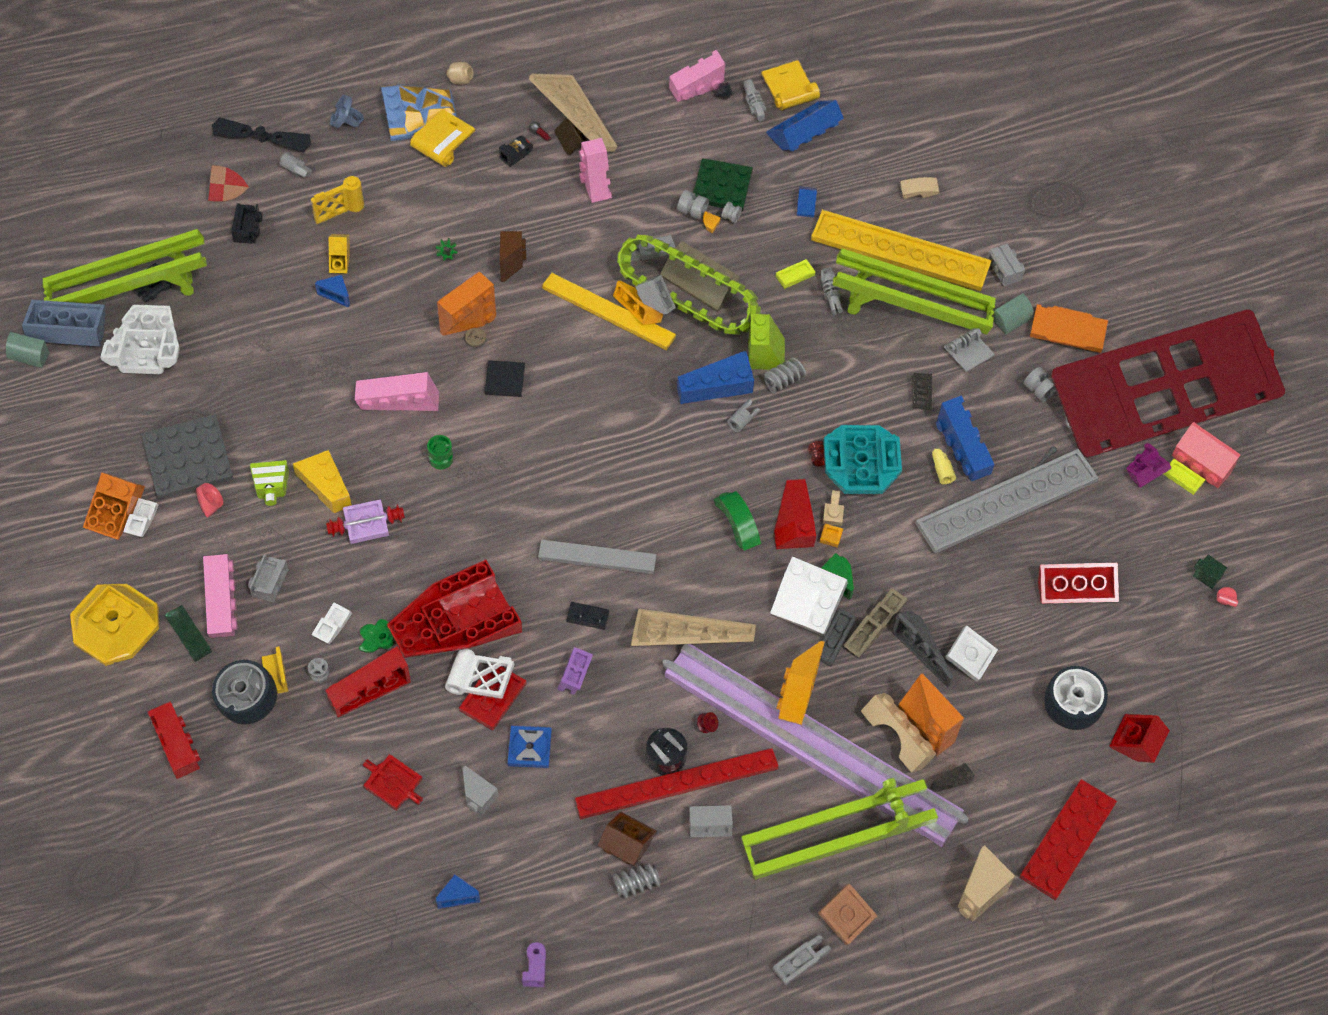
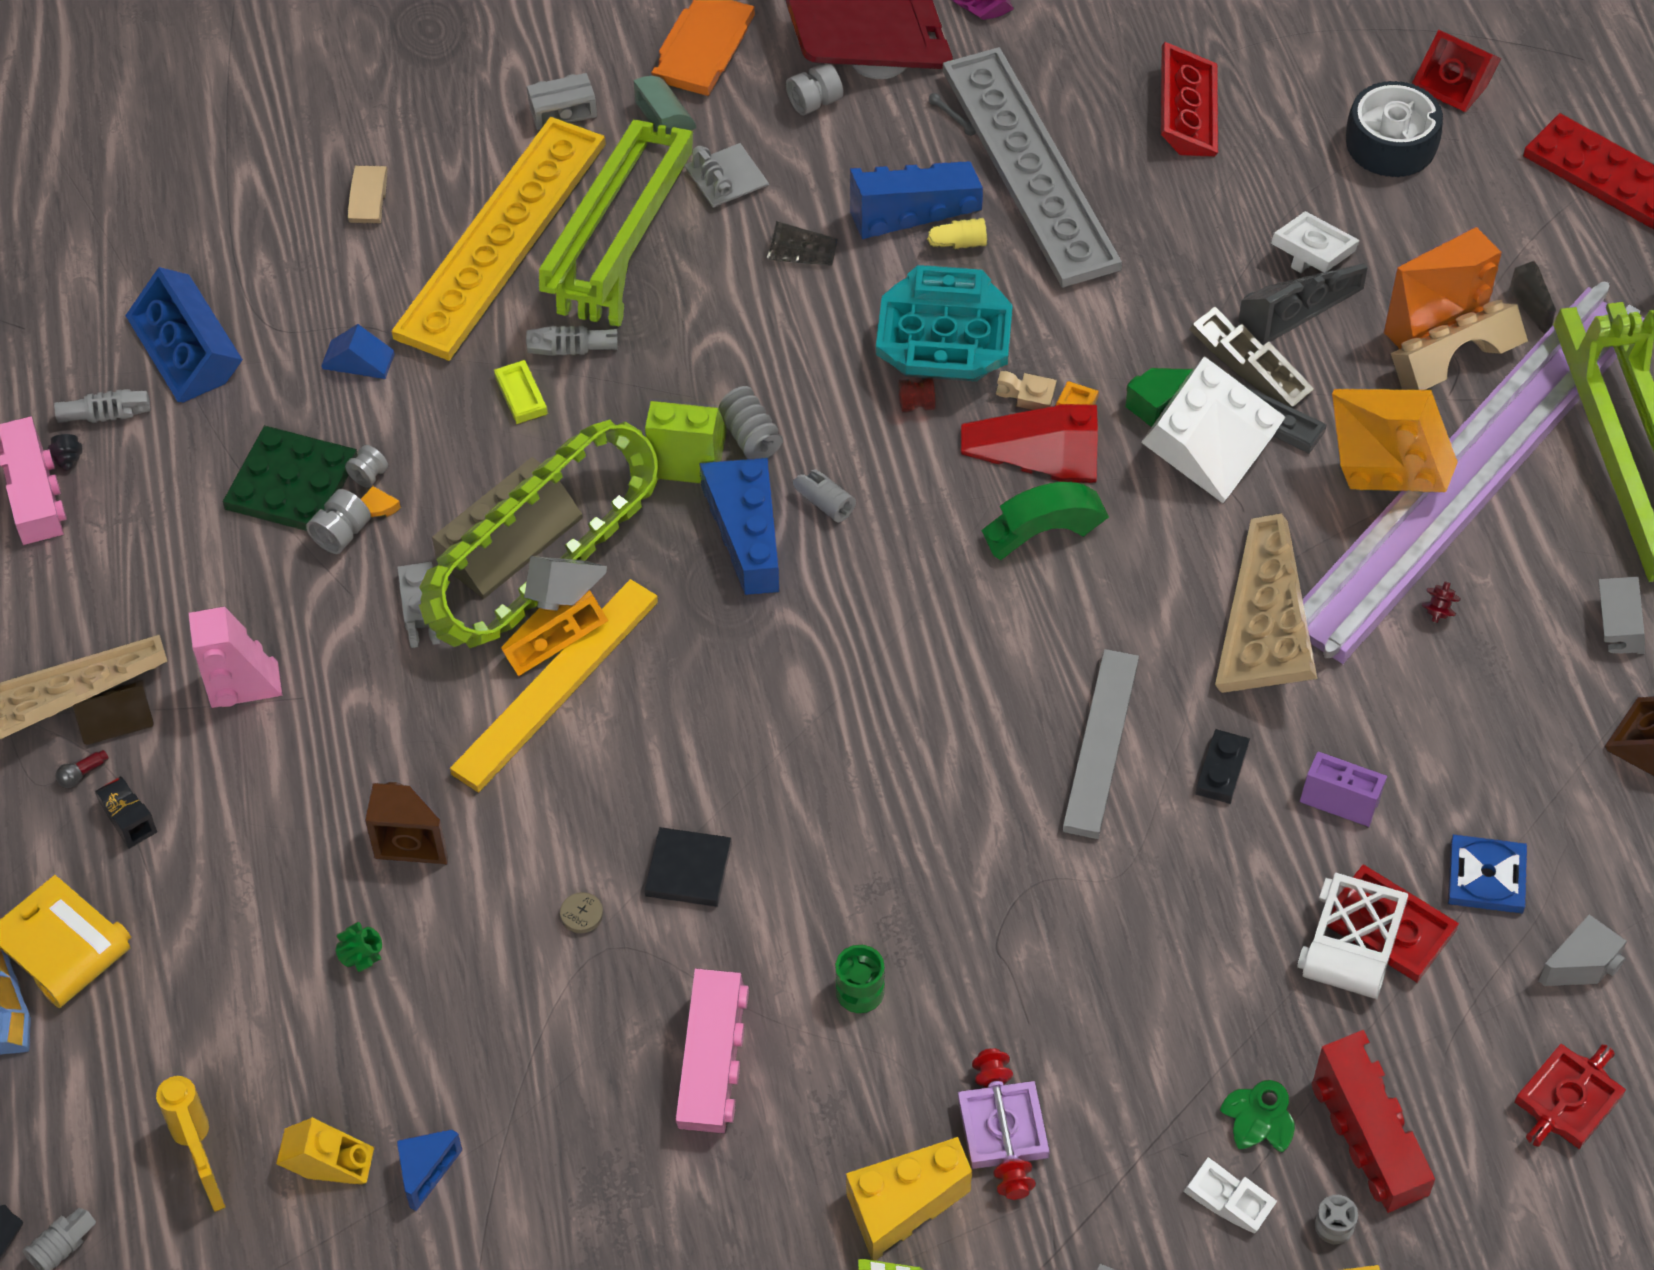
camera: 80 degrees left, 5 degrees down
(455, 614) = (1232, 966): red wedge -> none
(467, 306) = (537, 894): orange slope -> none
(666, 751) = (1503, 660): black piece -> none
(676, 783) = (1552, 666): red plate -> none
(790, 85) = (82, 349): yellow door -> none

